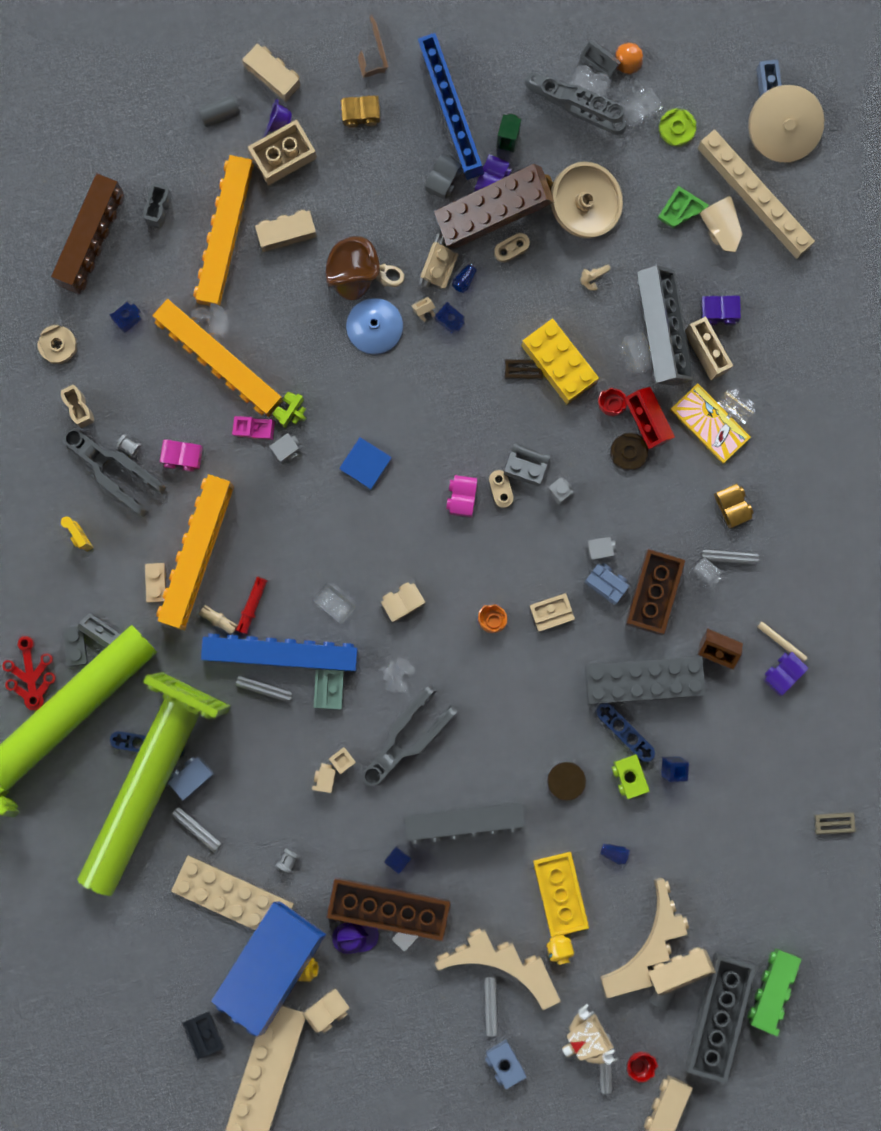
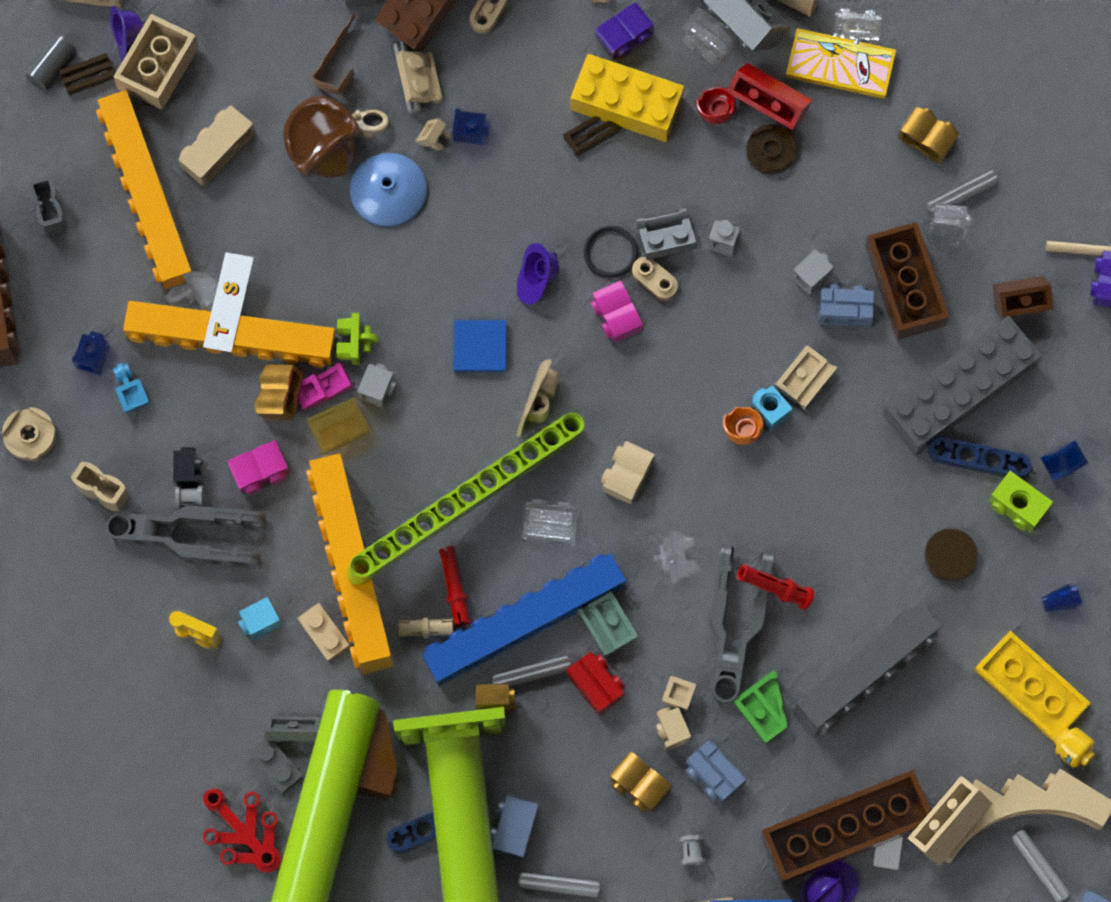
camera: 30 degrees left, 10 degrees down
(121, 550) = (259, 619): none -> medium azure brick
(133, 358) = (131, 393): none -> dark azure plate
(133, 689) = (380, 765): none -> reddish brown slope
(137, 427) = (186, 467): none -> black brick
(221, 129) = (103, 58): none -> dark brown tile
(222, 415) = (278, 392): none -> pearl gold brick
(227, 338) = (228, 302): none -> white sticker
(227, 693) = (495, 696): none -> pearl gold brick
(246, 459) = (338, 426): none -> clear yellow plate
(283, 799) = (640, 783): none -> pearl gold brick
(297, 721) = (596, 683): none -> red brick
(299, 553) = (459, 507): none -> lime beam
(333, 822) = (715, 772): none -> sand blue brick
(387, 514) = (542, 390): none -> tan panel
(388, 802) = (763, 708): none -> bright green wing
(397, 859) = (819, 765): clear blue brick -> none
(398, 236) = (349, 76): none -> medium nougat piece
(431, 438) = (537, 271): none -> dark purple piece
(448, 738) = (785, 589): none -> red pin
(450, 948) = (950, 820): none -> tan brick
(464, 279) = (457, 75): clear blue cone -> none
(481, 437) = (610, 274): none -> black tyre
(517, 626) = (771, 418): none -> medium azure brick
(587, 316) = (625, 31): none -> dark purple brick

